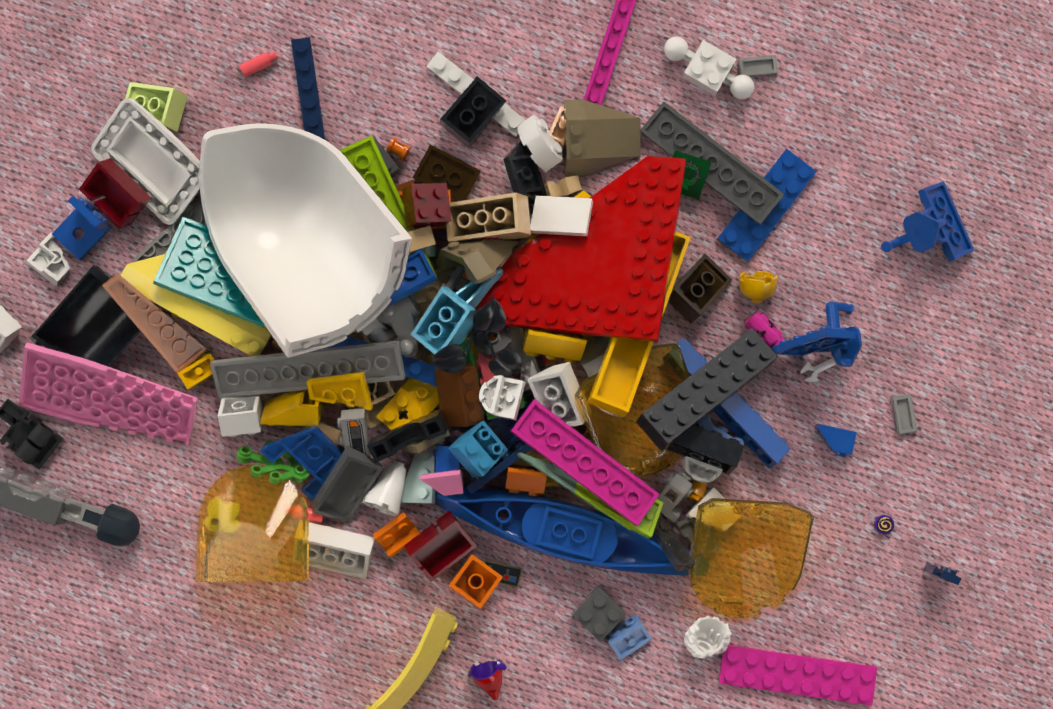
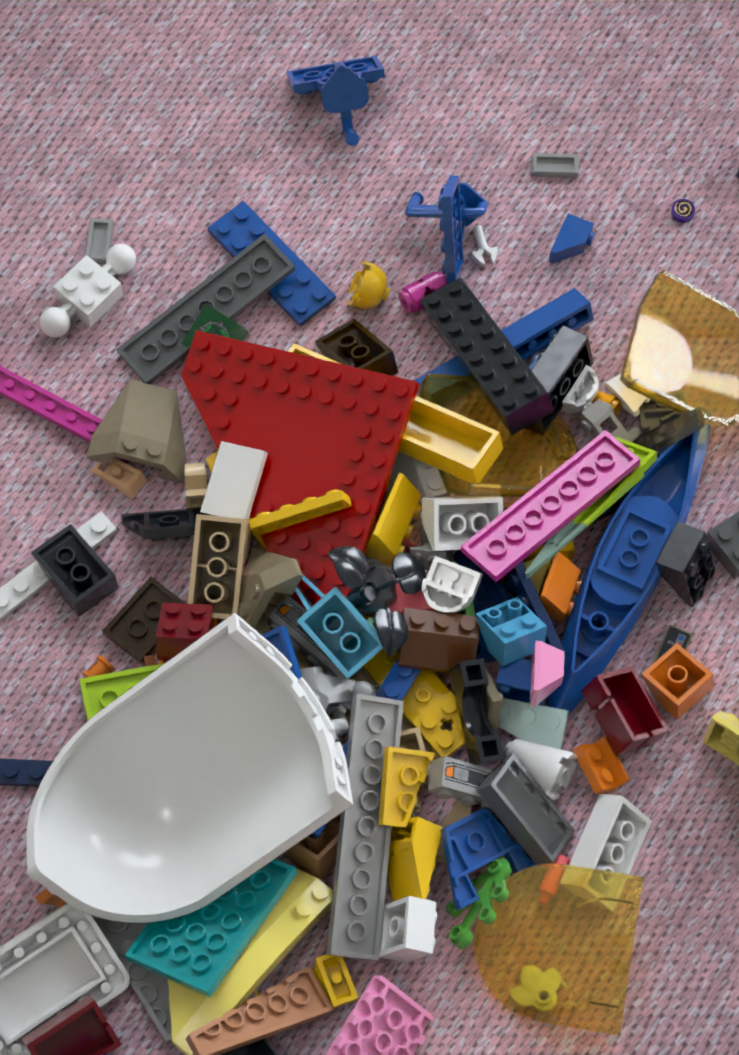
camera: 80 degrees left, 20 degrees down
(543, 277) = (293, 514): none -> yellow plate
(544, 148) = (128, 498): white brick -> none
(566, 574) = (686, 562): none -> black slope

